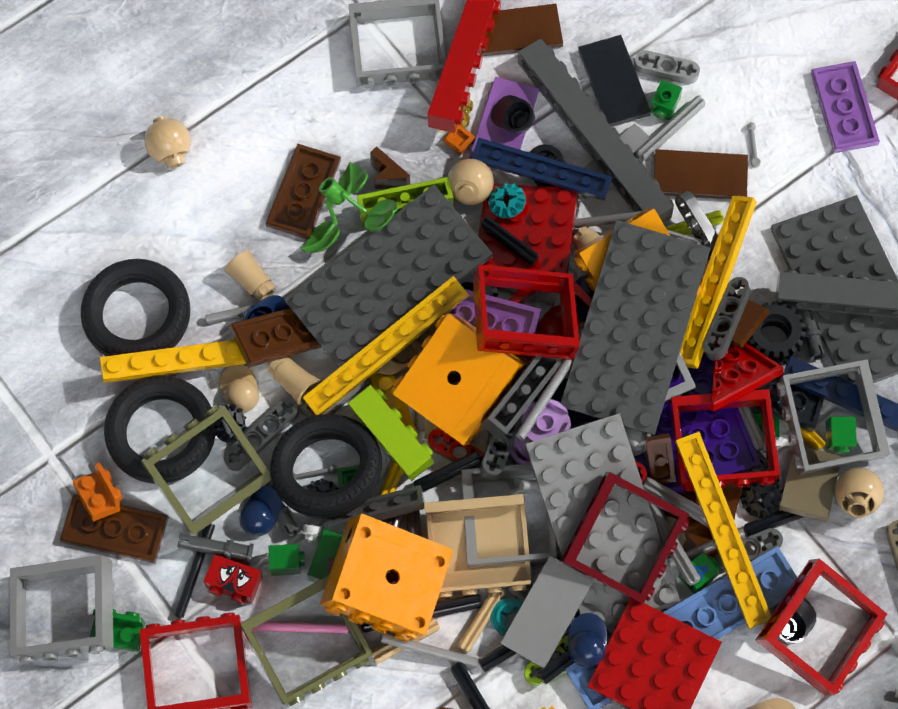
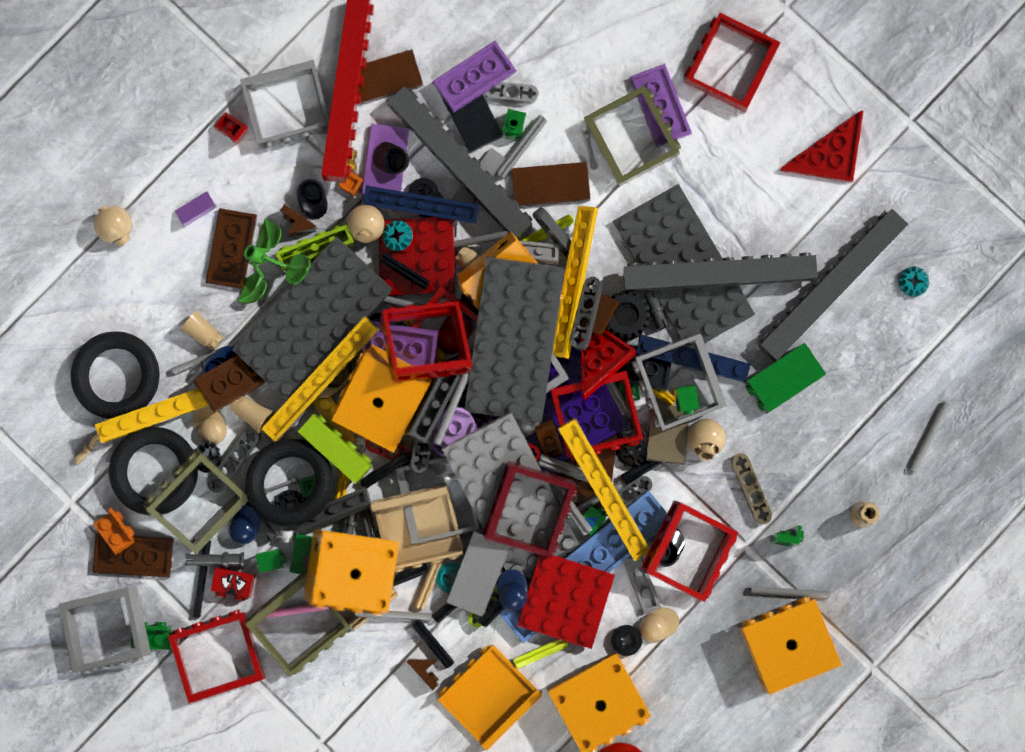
camera: 10 degrees left, 15 degrees up
(83, 394) = (88, 449): none -> tan piece
(269, 141) = (195, 209): none -> medium lavender slope
(330, 57) = (231, 128): none -> red slope
(410, 147) = (312, 198): none -> black cap
(625, 41) = (474, 76): none -> medium lavender tile
(754, 664) = (642, 585): none -> light grey tile
(818, 170) = (665, 128): none -> olive window

